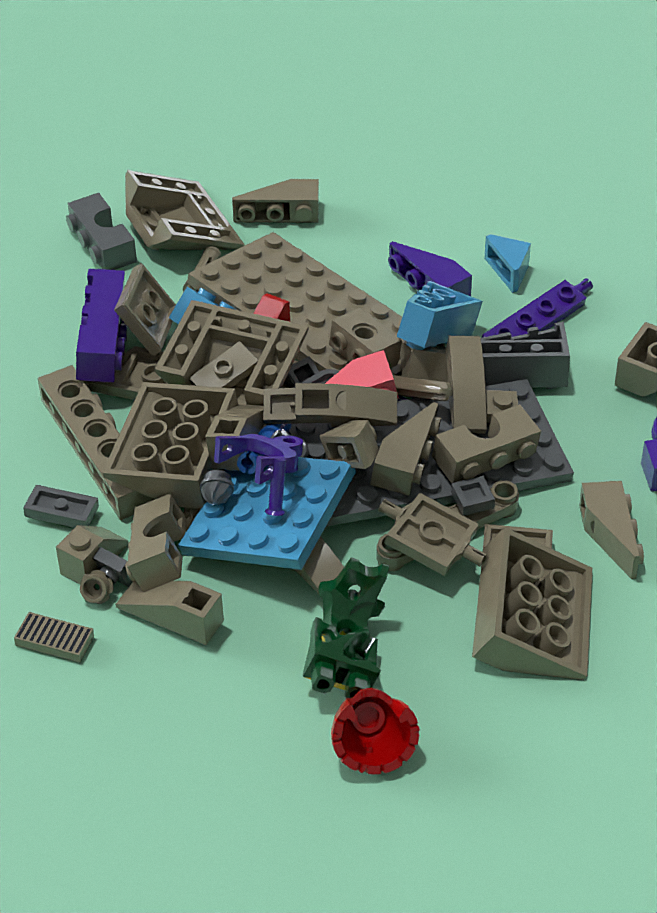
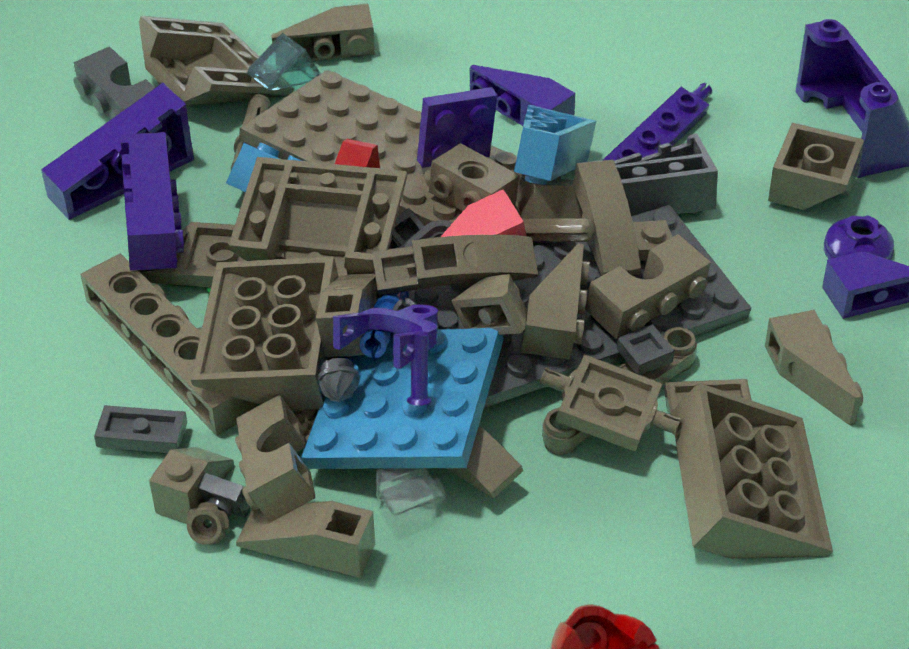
camera: 10 degrees left, 0 degrees up
(54, 637) = (166, 595): dark tan tile -> none
(61, 295) = (93, 167): none -> dark purple wedge
(146, 309) = (198, 175): dark tan tile -> none
(226, 369) = (316, 233): dark tan plate -> none
(236, 224) = (283, 65): none -> clear light blue slope
(257, 589) = (409, 500): none -> clear slope
(346, 612) = (530, 512): dark green hips -> none
(361, 287) = (454, 120): none -> dark purple plate
(508, 259) = (607, 71): dark azure slope -> none

